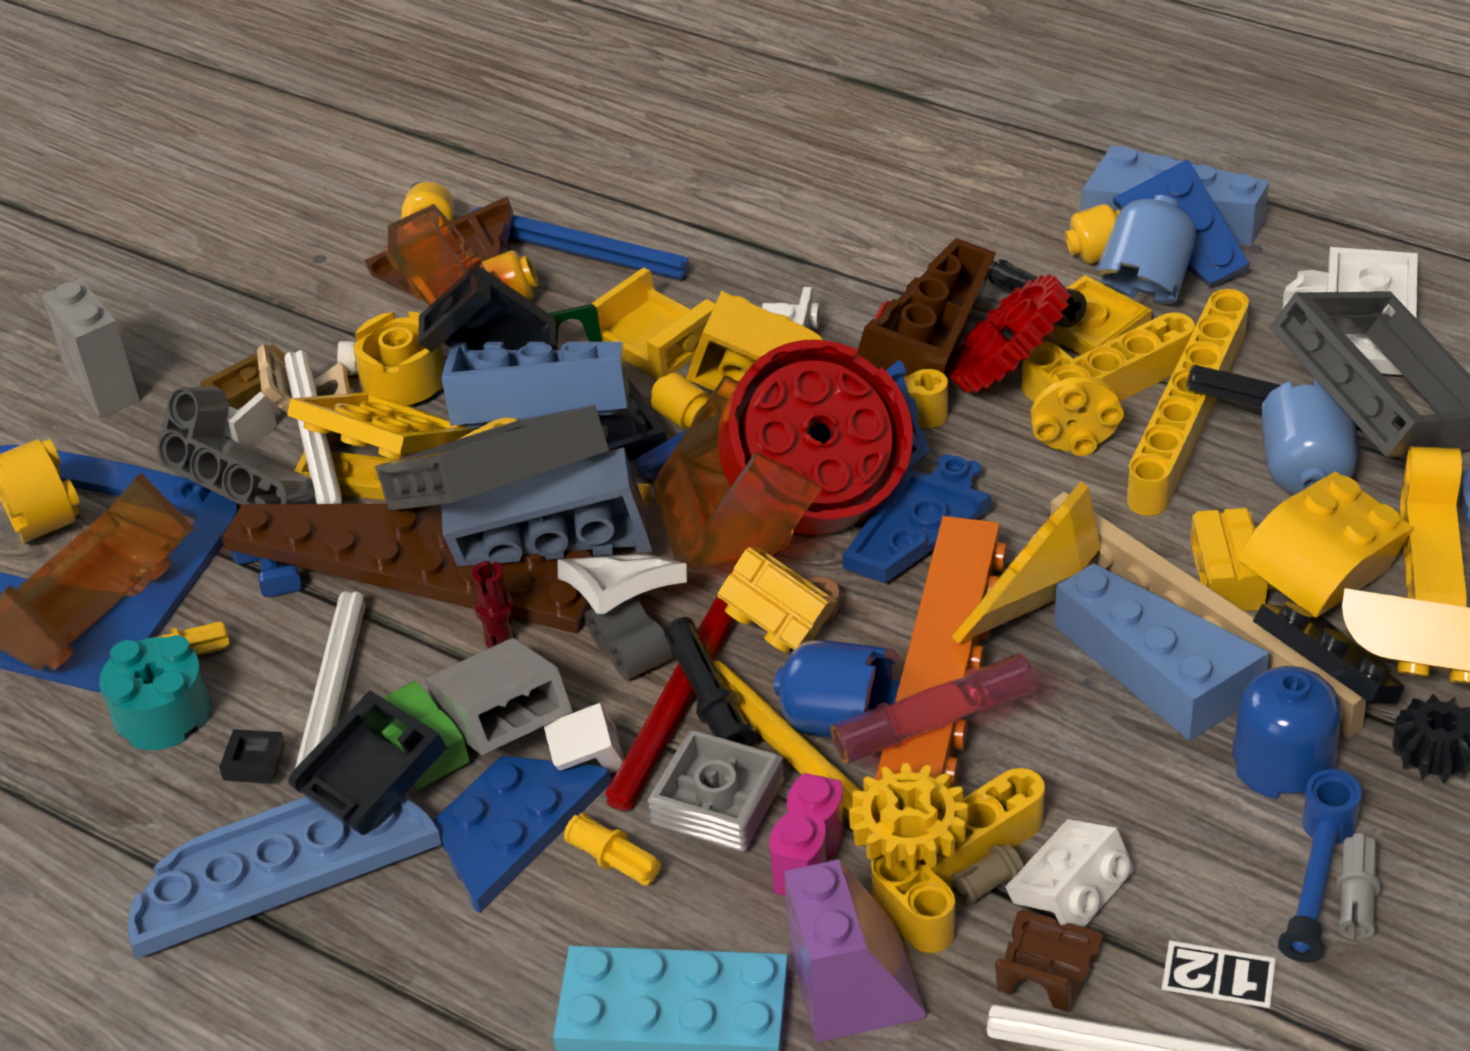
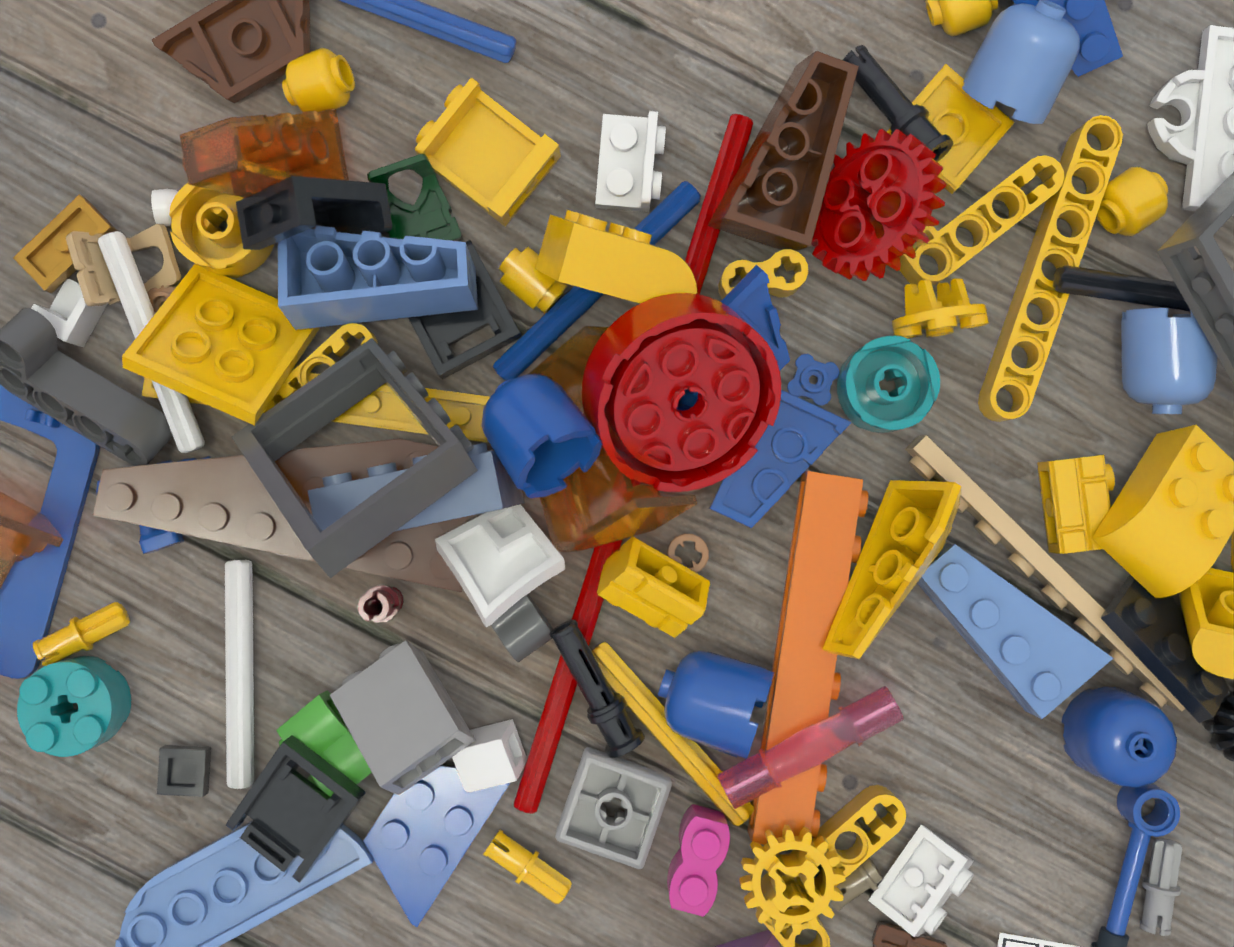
camera: 10 degrees left, 45 degrees up
(675, 448) = (538, 434): none -> blue cylinder
(1025, 464) = (898, 361): none -> teal brick
(1262, 354) = (1133, 201): none -> yellow head

